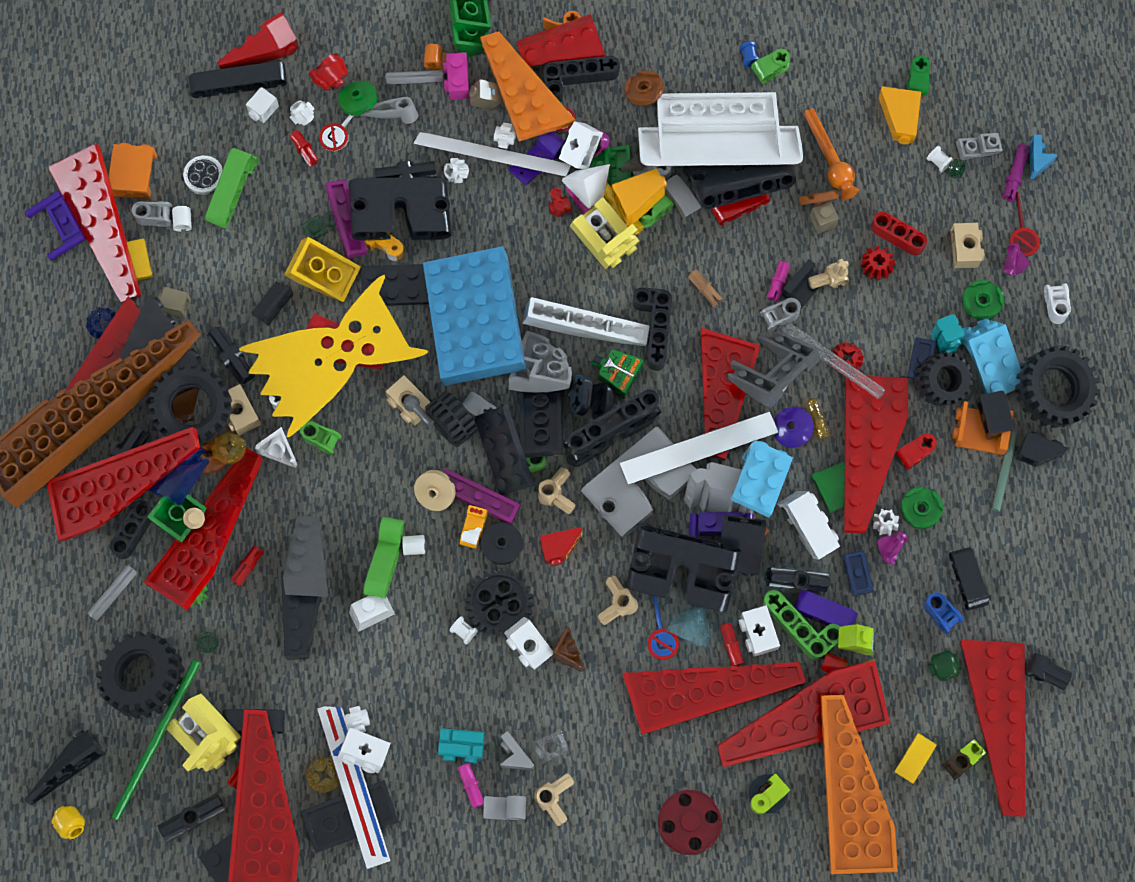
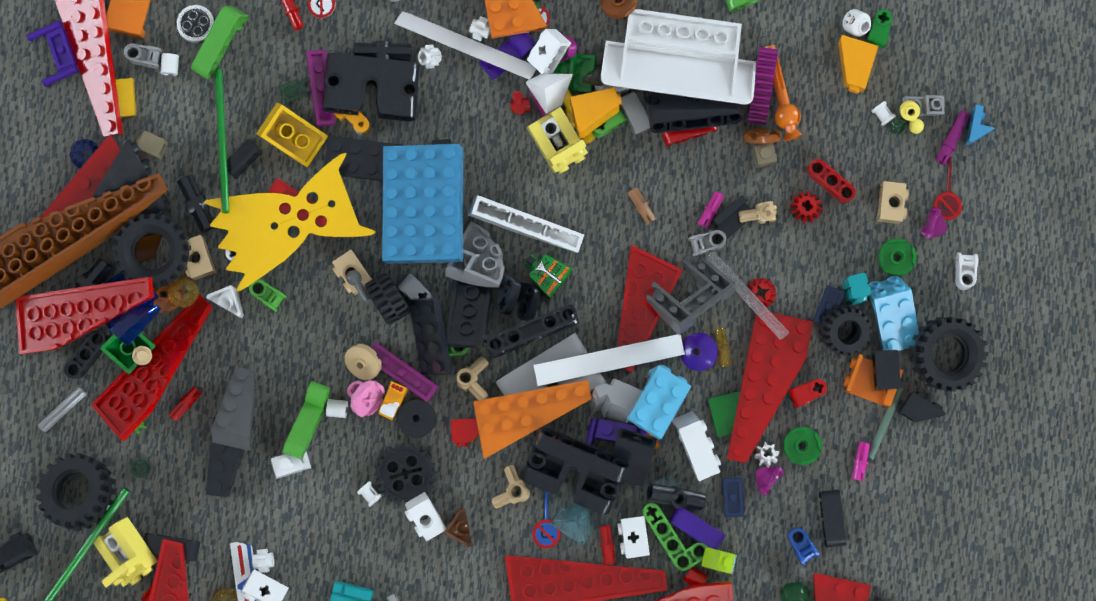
camera: 10 degrees right, 10 degrees up
(249, 286) = (222, 141): none -> green piece
(443, 527) = (366, 398): none -> bright pink tile
(610, 519) = (515, 415): none -> orange wing
(656, 330) = (589, 239): black beam -> none
(810, 138) = (764, 78): none -> magenta gear
(894, 73) = (856, 22): none -> white head
(975, 165) = (915, 125): none -> light yellow plate
(987, 514) = (861, 461): none -> dark pink axle

